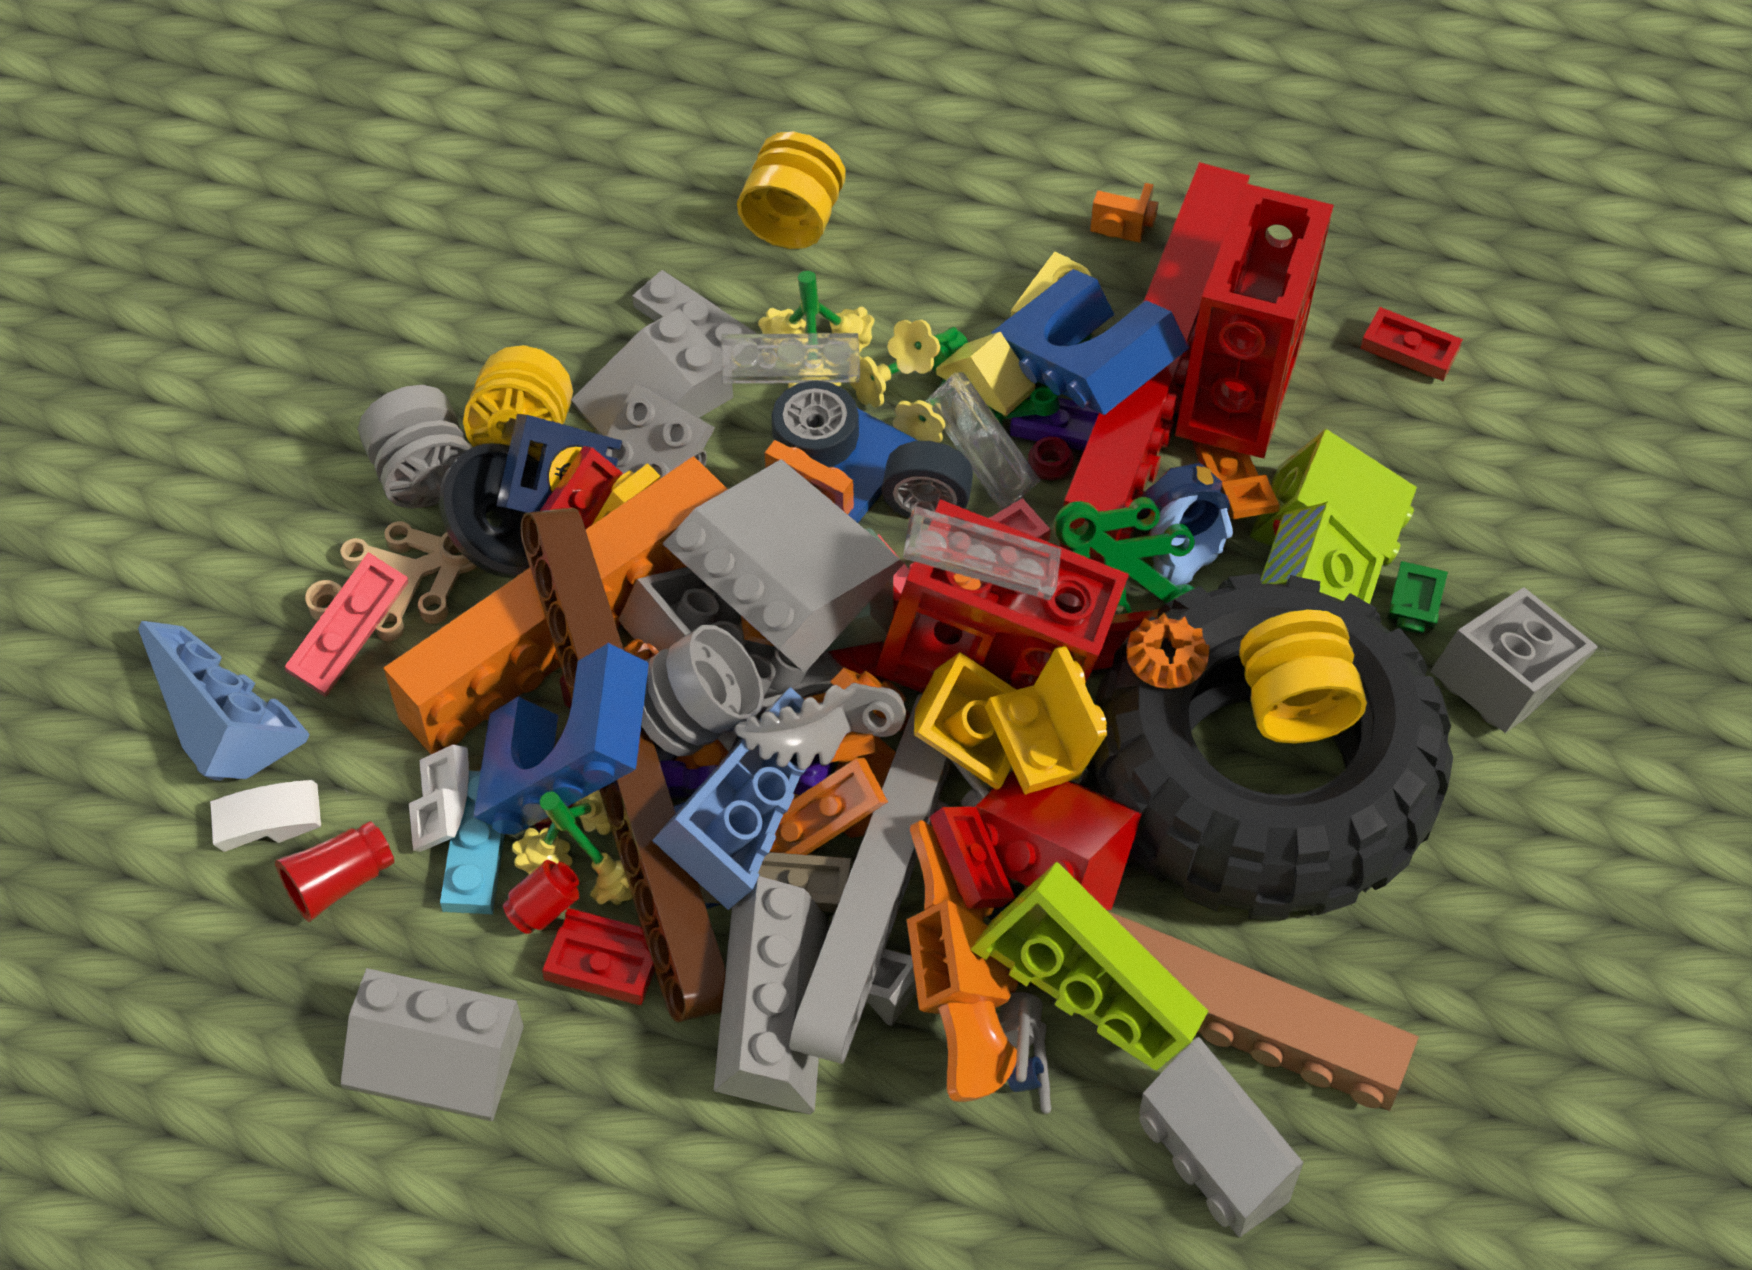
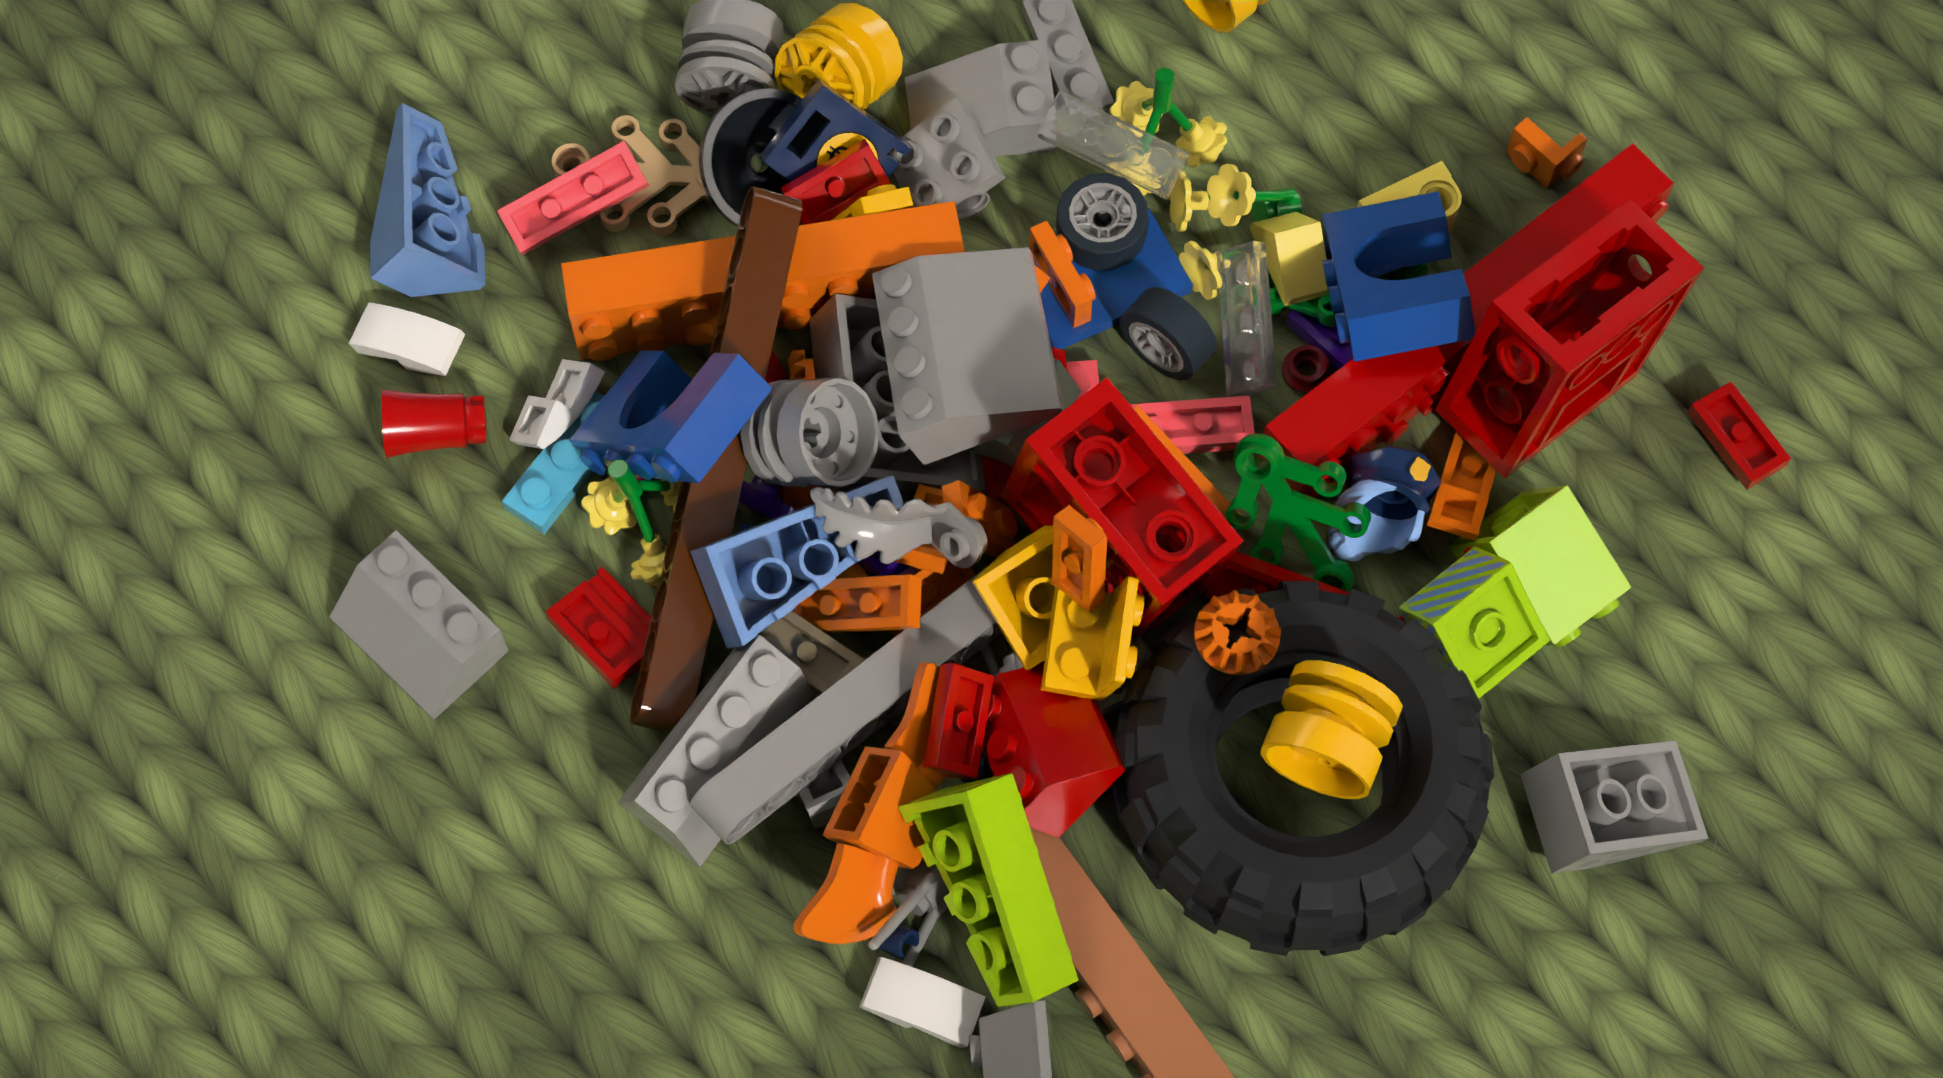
camera: 30 degrees right, 10 degrees up
(542, 896) = (584, 544): red brick -> none
(982, 553) = (1108, 452): clear plate -> none
(1003, 658) = (1079, 558): none -> orange plate
(1080, 1111) = (922, 1001): none -> white slope
(1417, 597) = (1559, 695): green bracket -> none

